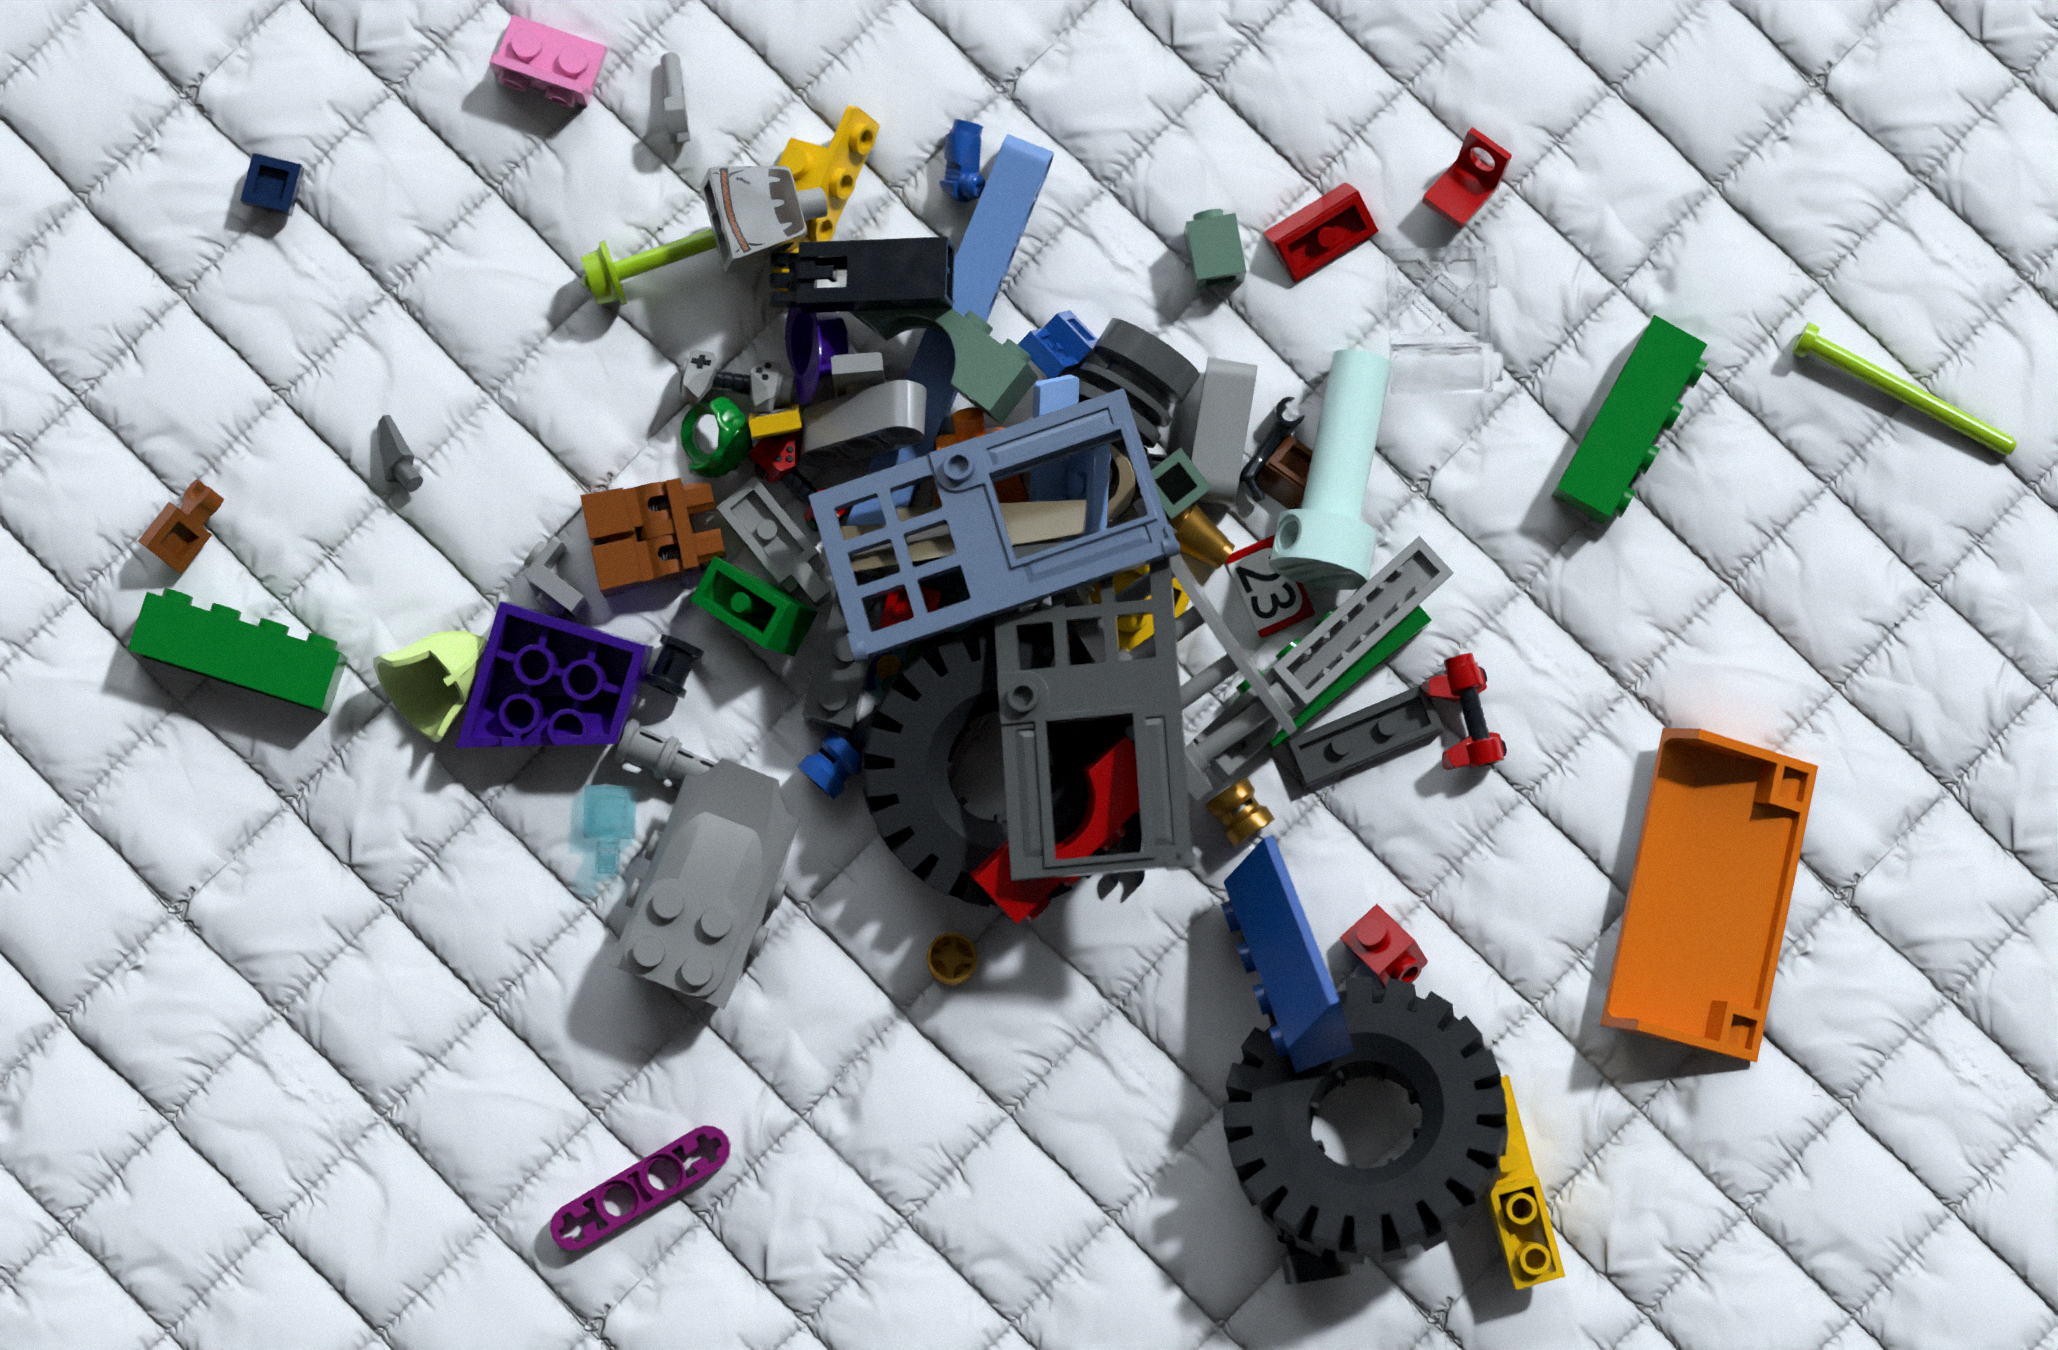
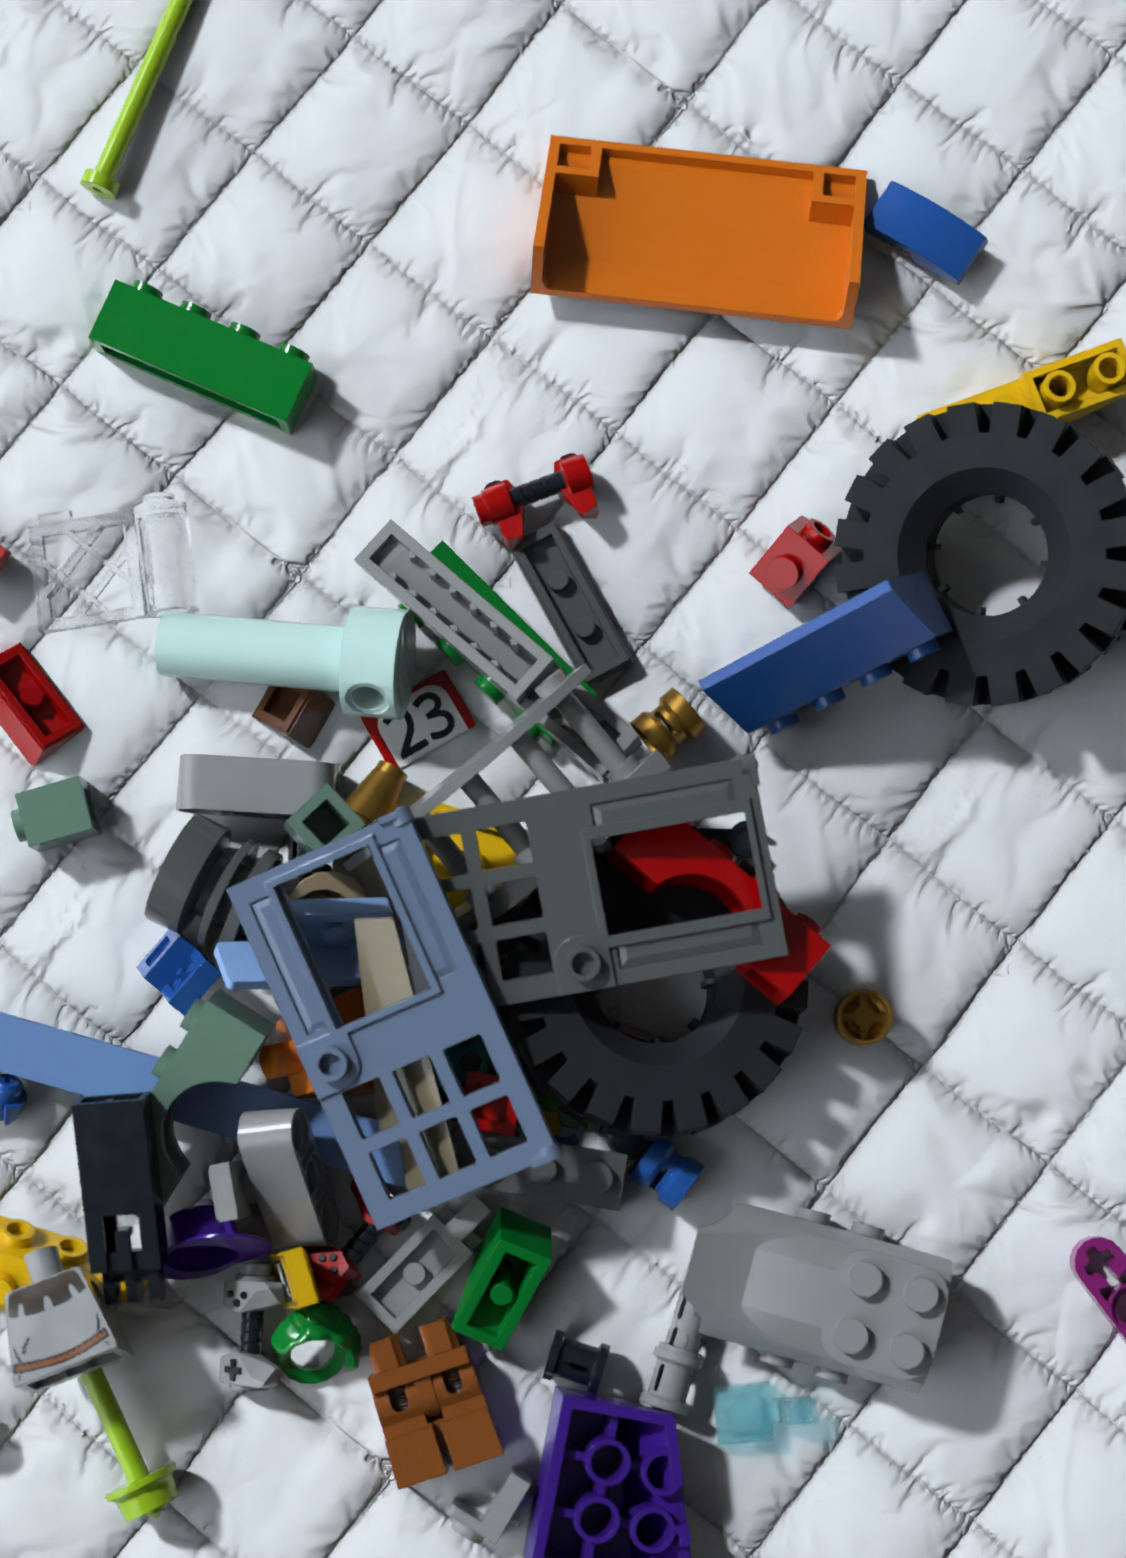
camera: 90 degrees left, 0 degrees up
(1267, 449) = (269, 736): black piece -> none
(1689, 1108) = (926, 231): none -> blue slope

